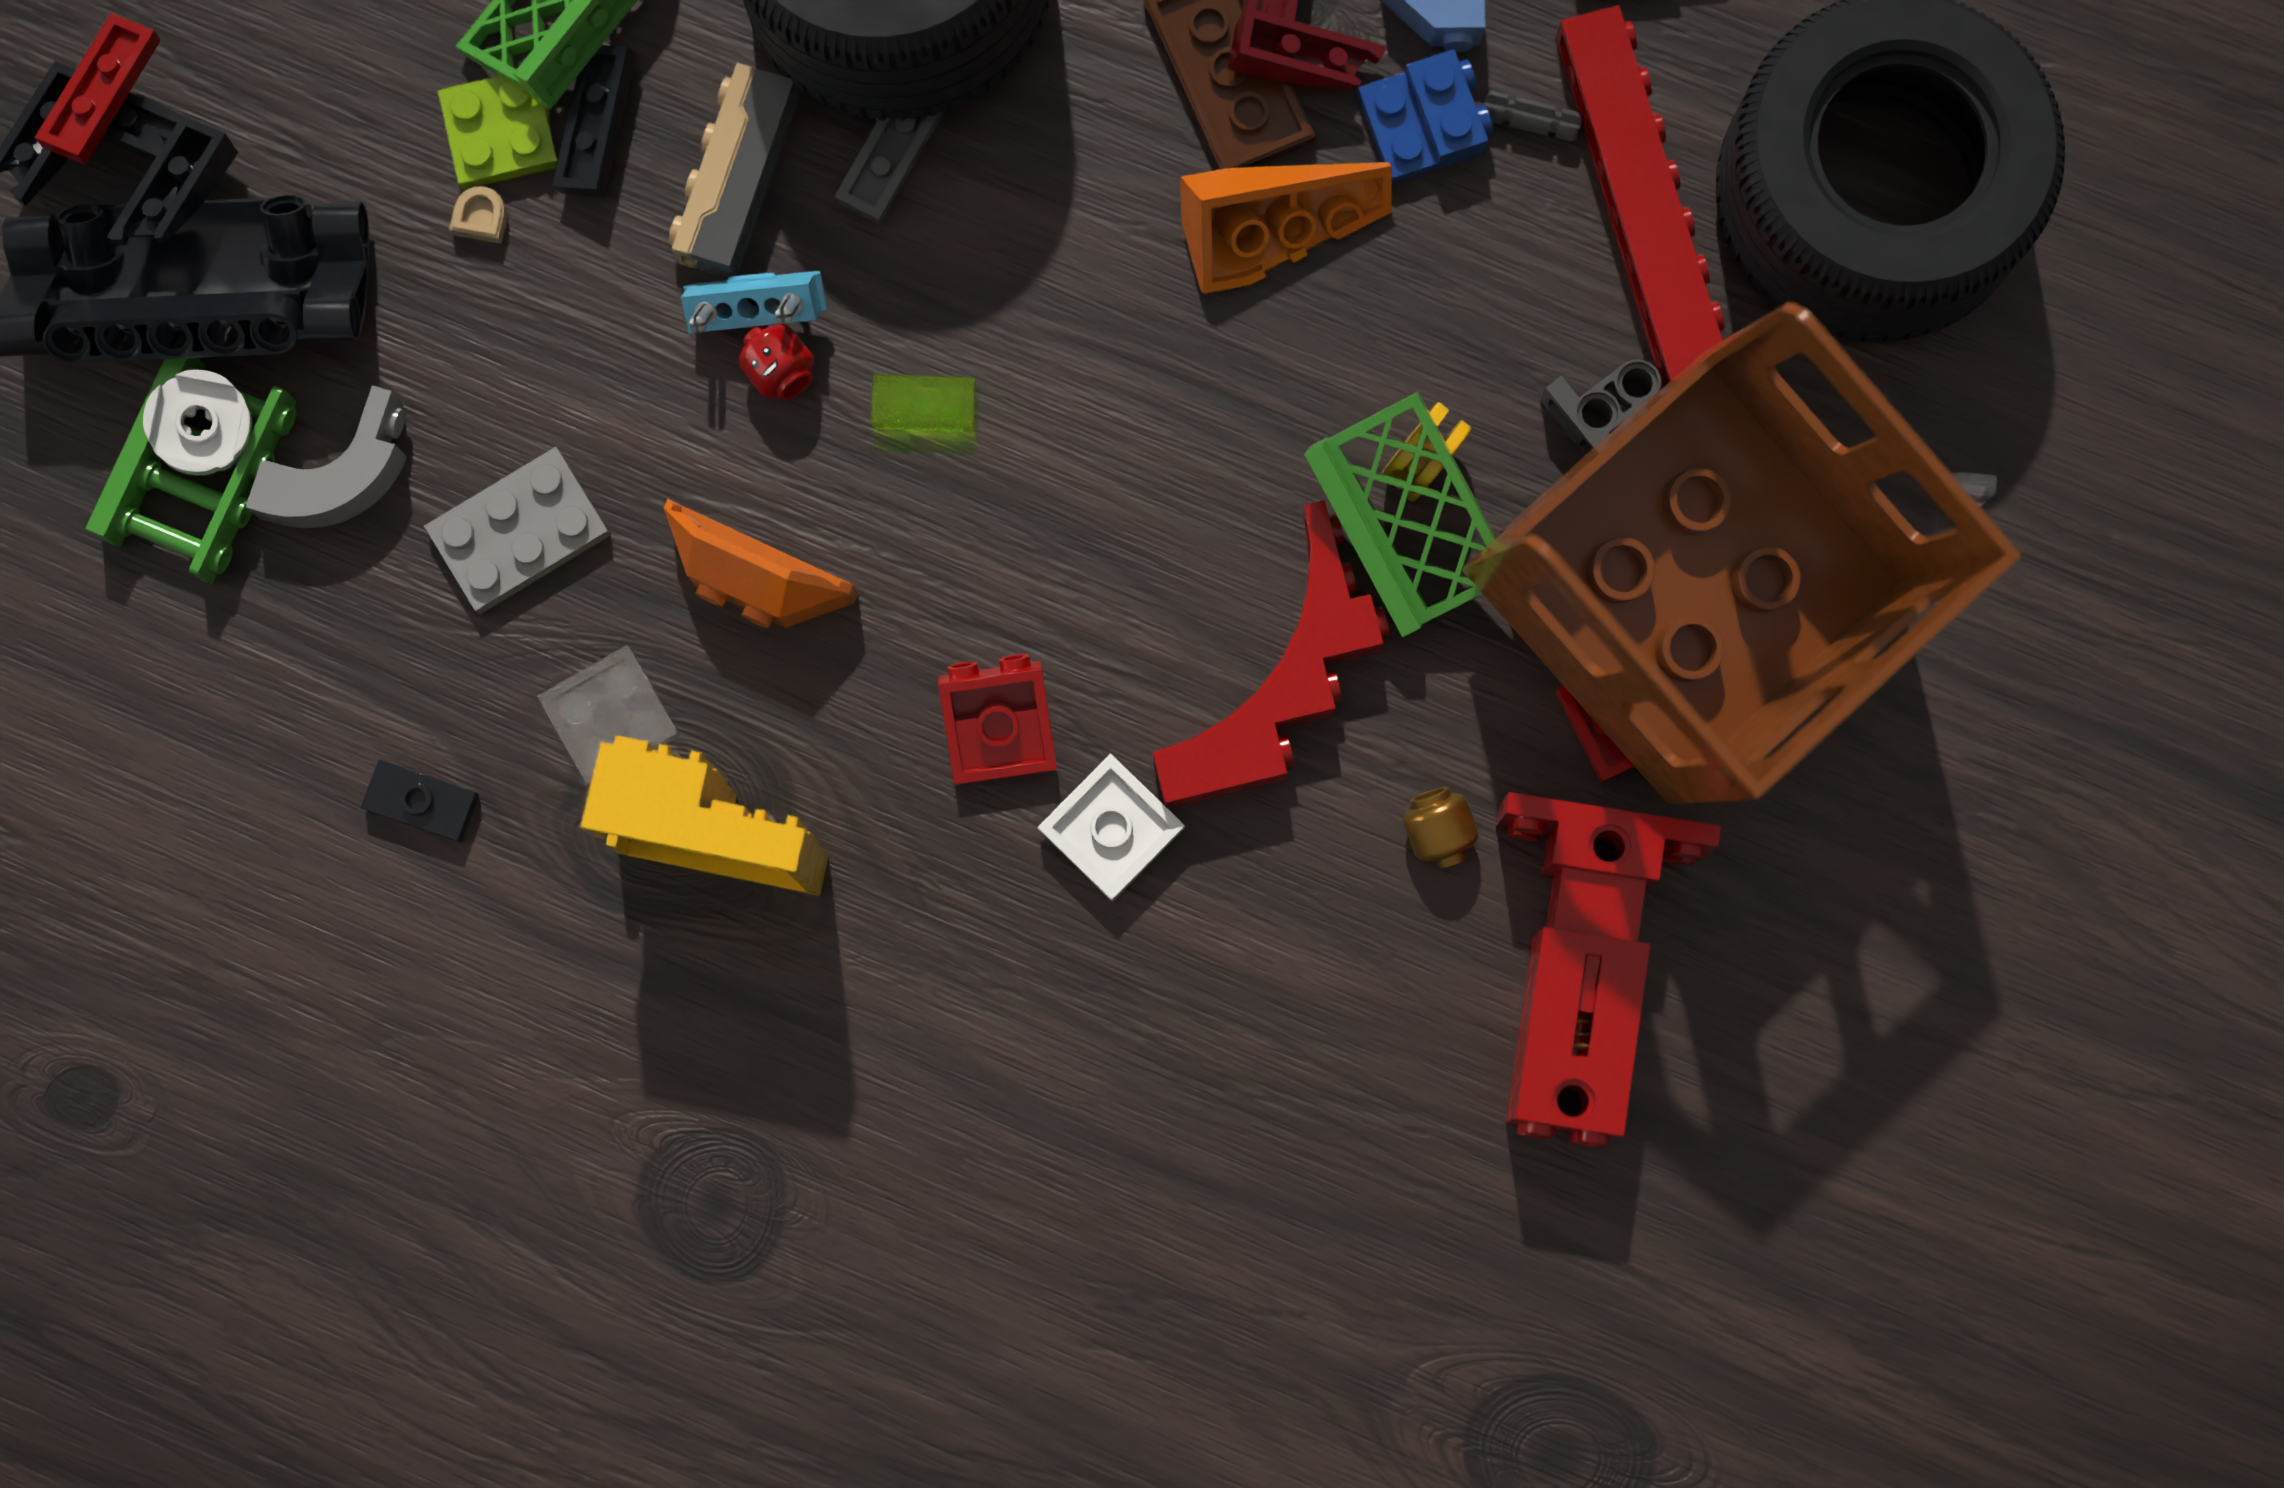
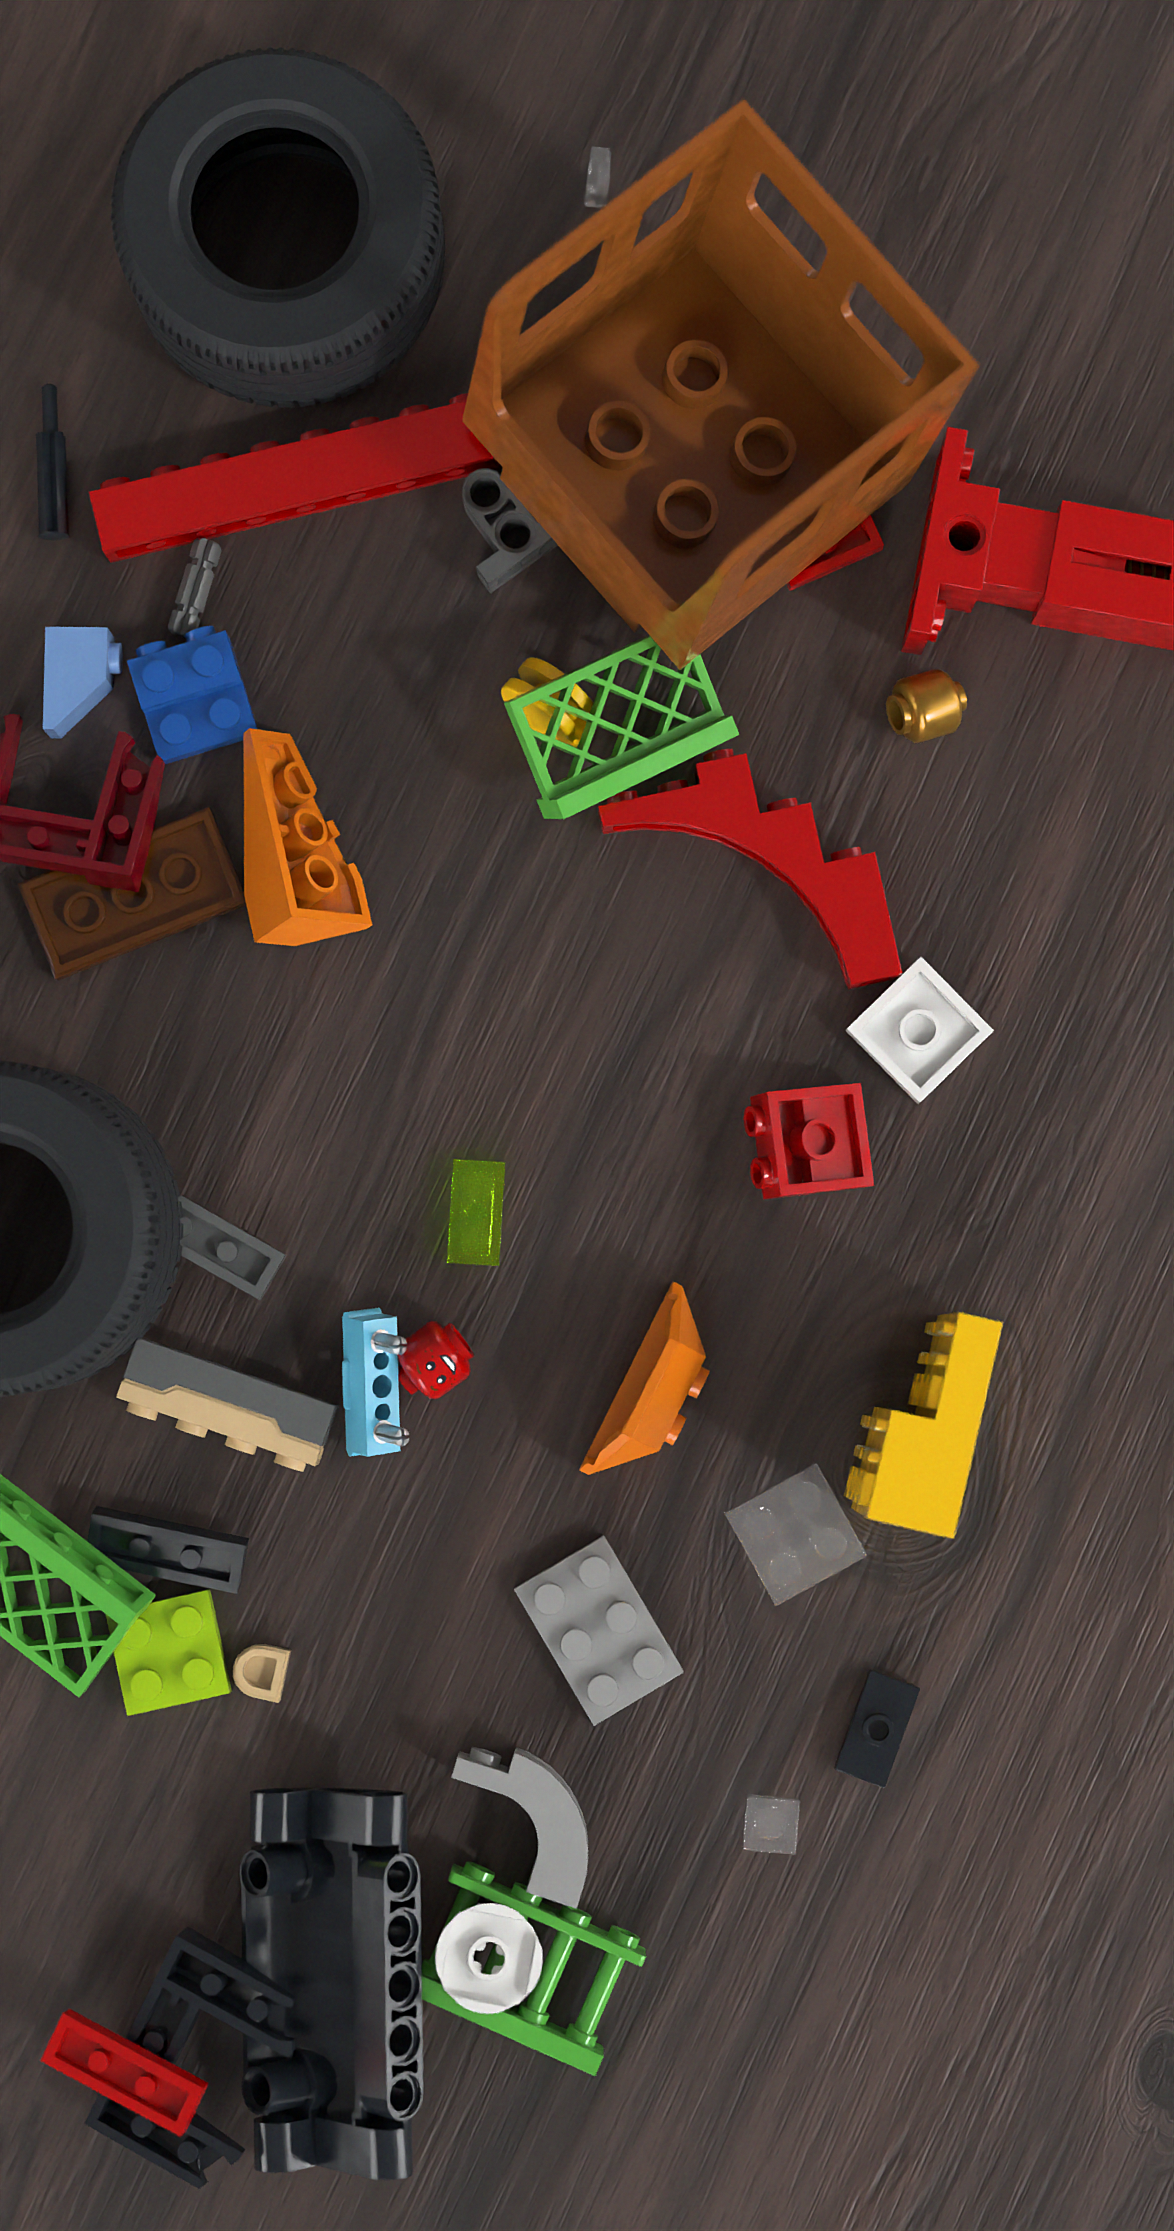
camera: 90 degrees left, 5 degrees up
(326, 698) = (771, 1824): none -> clear plate

